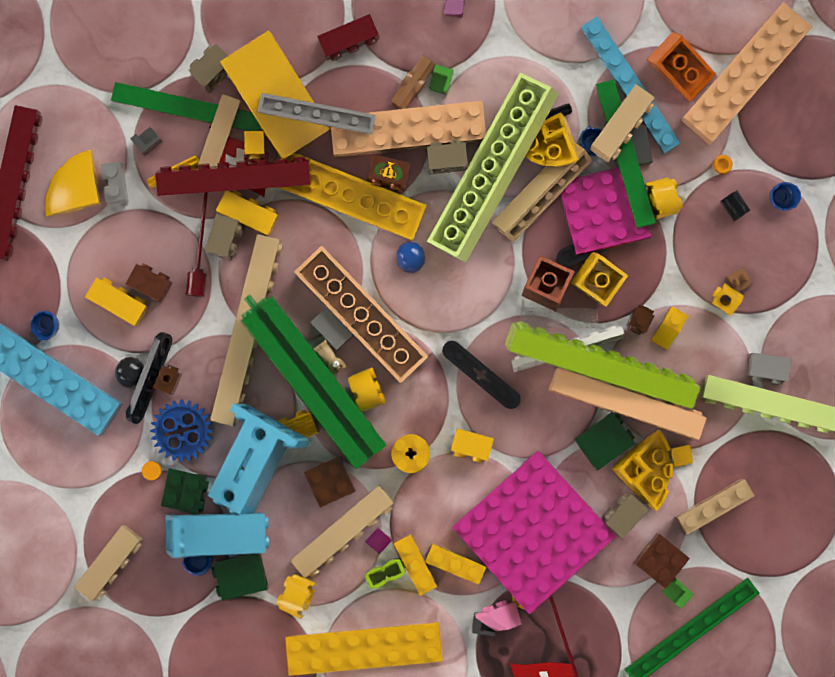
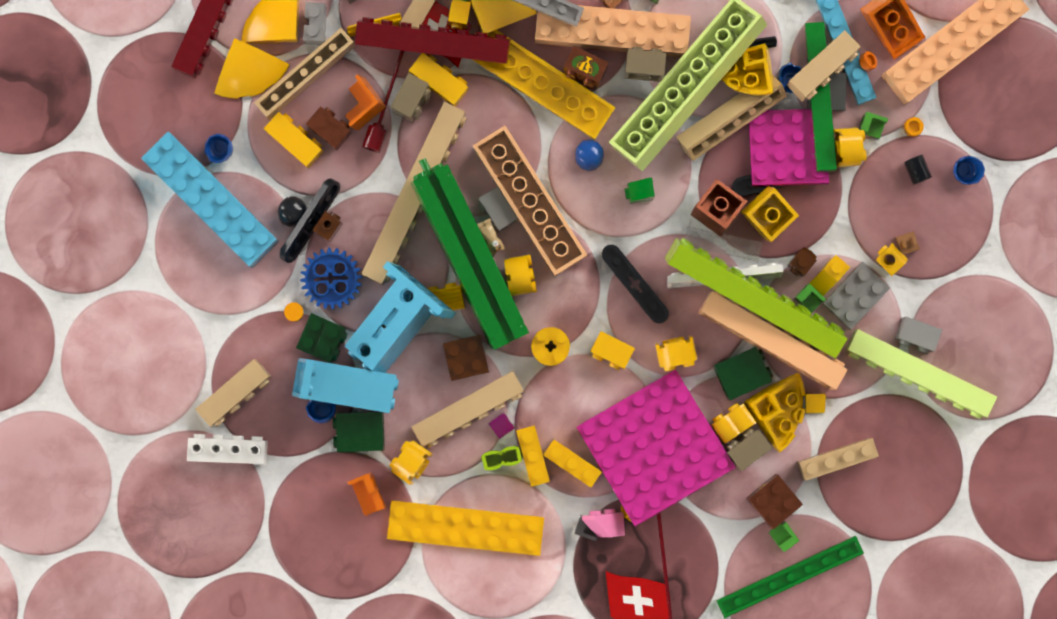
camera: 10 degrees right, 0 degrees up
(59, 243) = (248, 71): none -> yellow brick
(113, 621) = (227, 450): none -> white brick
(114, 235) = (305, 74): none -> tan brick
(184, 252) = (368, 106): none -> orange panel
(261, 634) = (368, 493): none -> orange panel
(467, 282) = (640, 191): none -> green slope
(535, 434) = (676, 352): none -> yellow brick
(605, 491) = (732, 423): none -> yellow brick
(655, 353) = (809, 297): none -> bright green panel
(665, 109) = (868, 61): none -> orange tile
(682, 170) = (872, 124): none -> bright green panel
(700, 341) = (856, 295): none -> light grey plate

